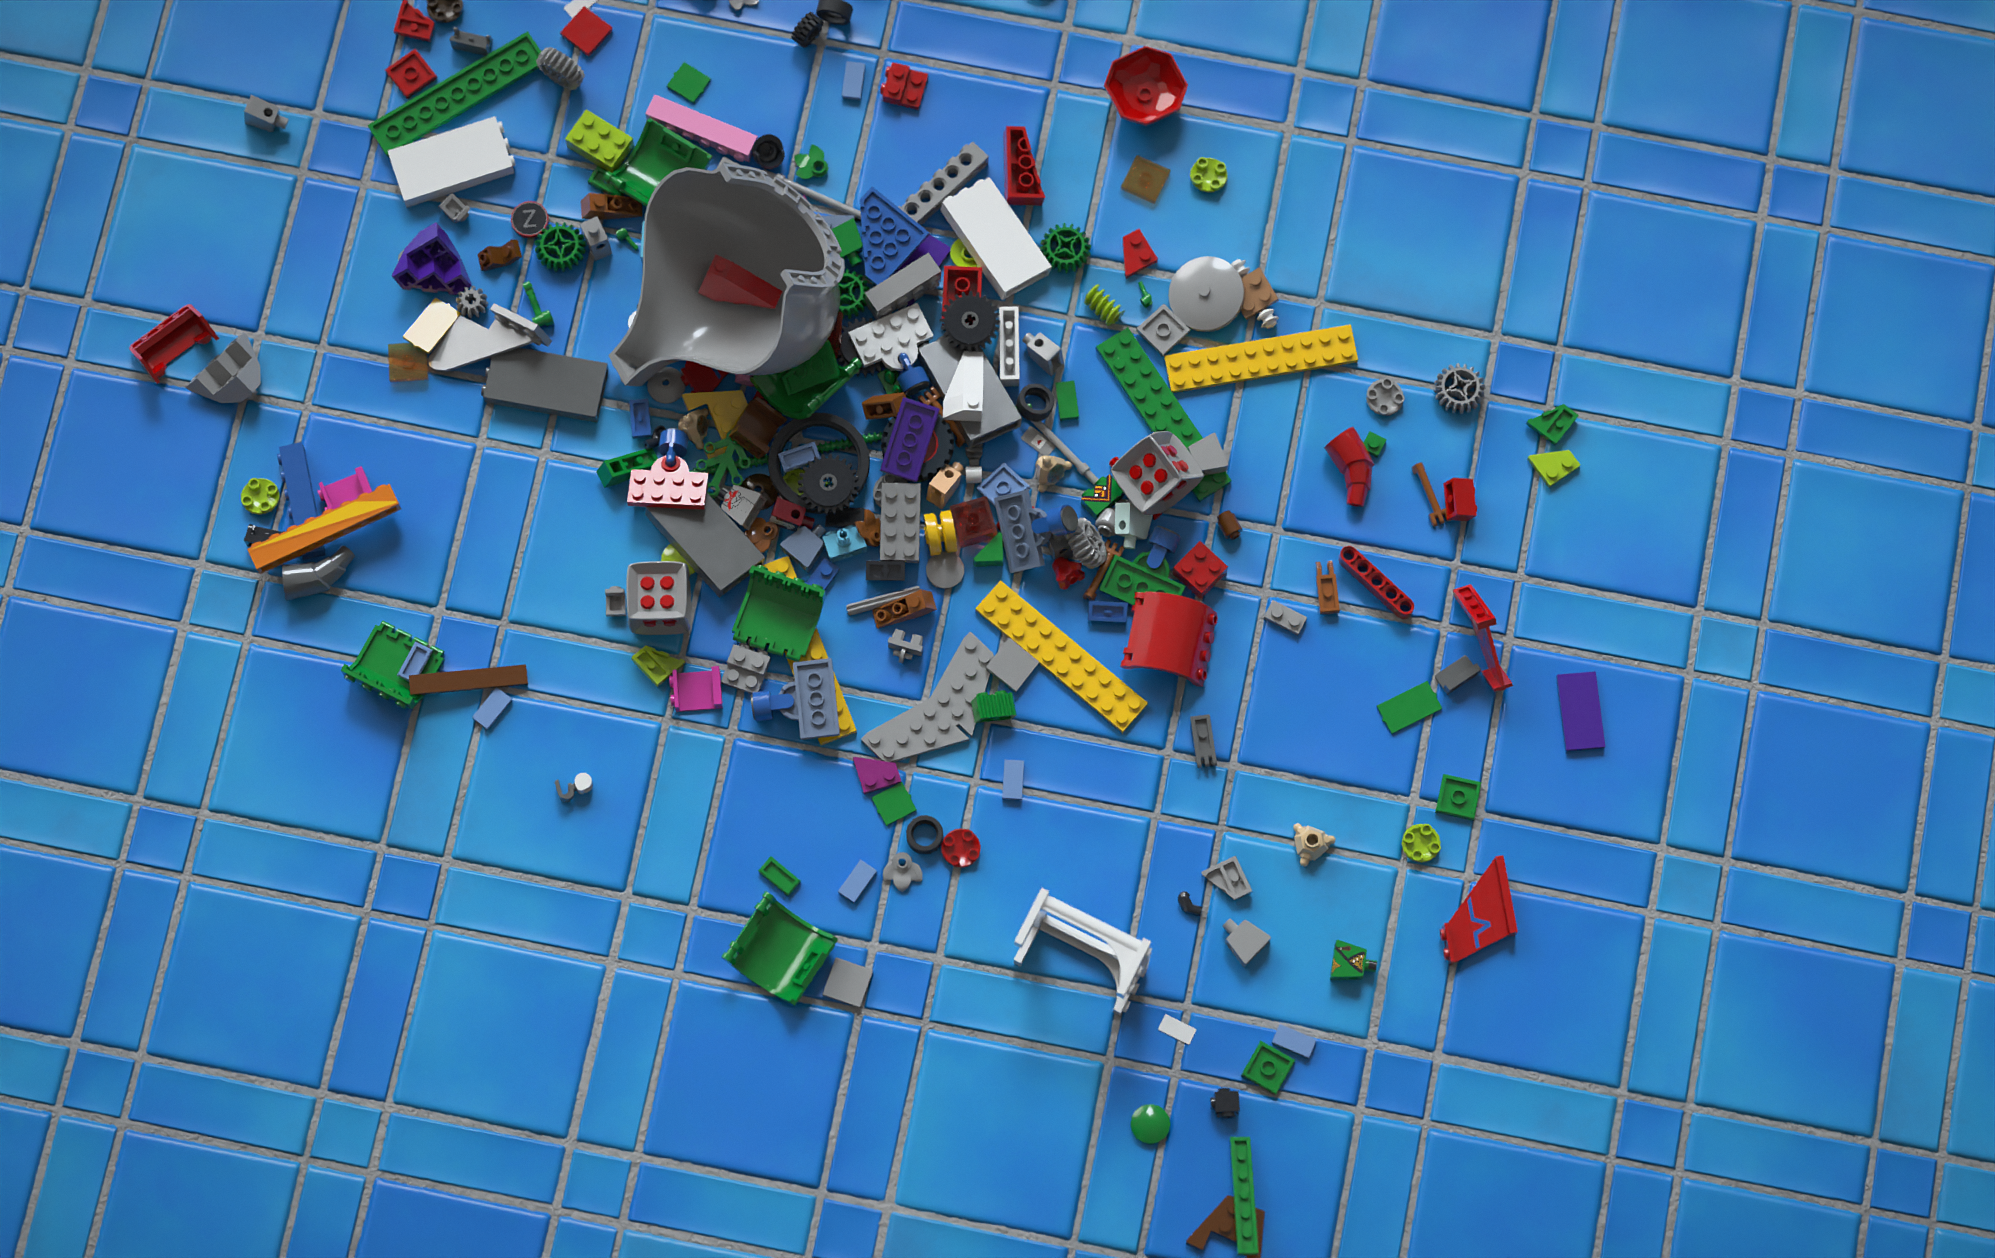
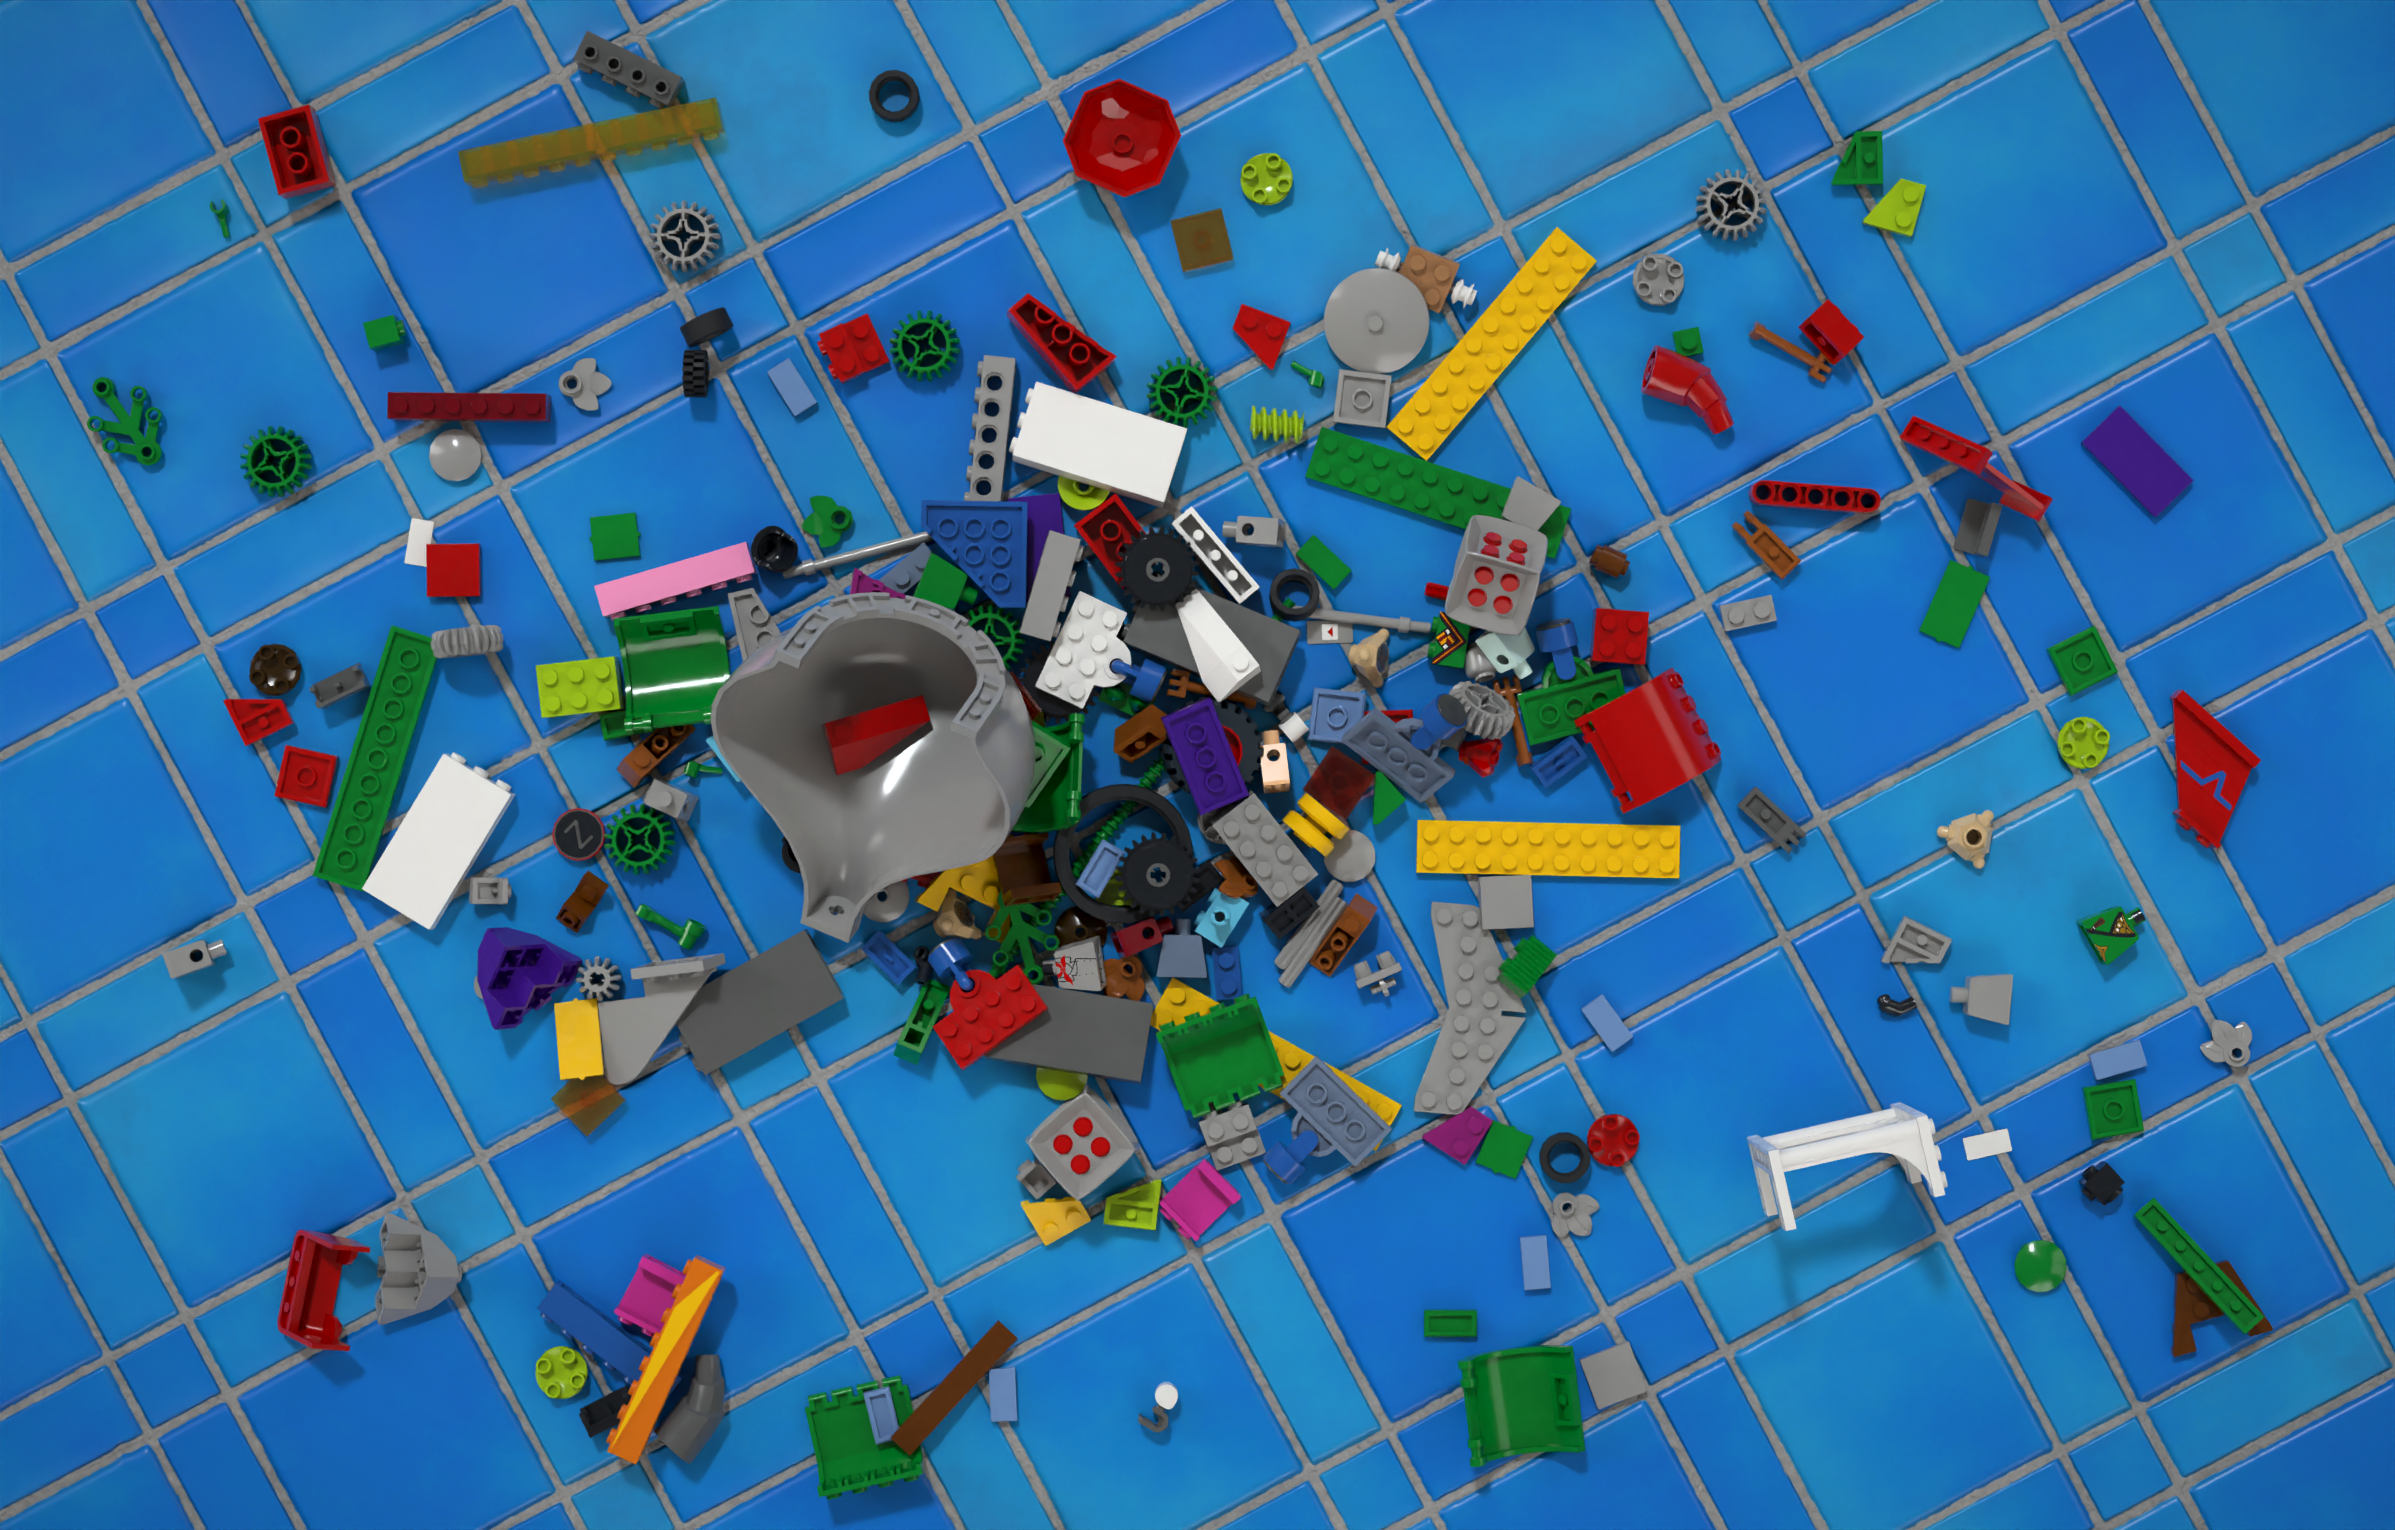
camera: 40 degrees left, 15 degrees up
(607, 633) = (1055, 1217): none -> yellow wing
(889, 588) = (1308, 925): none -> light grey axle
(957, 106) = (919, 357): none -> green gear
(1367, 1081) = (2227, 1039): none -> light grey plate

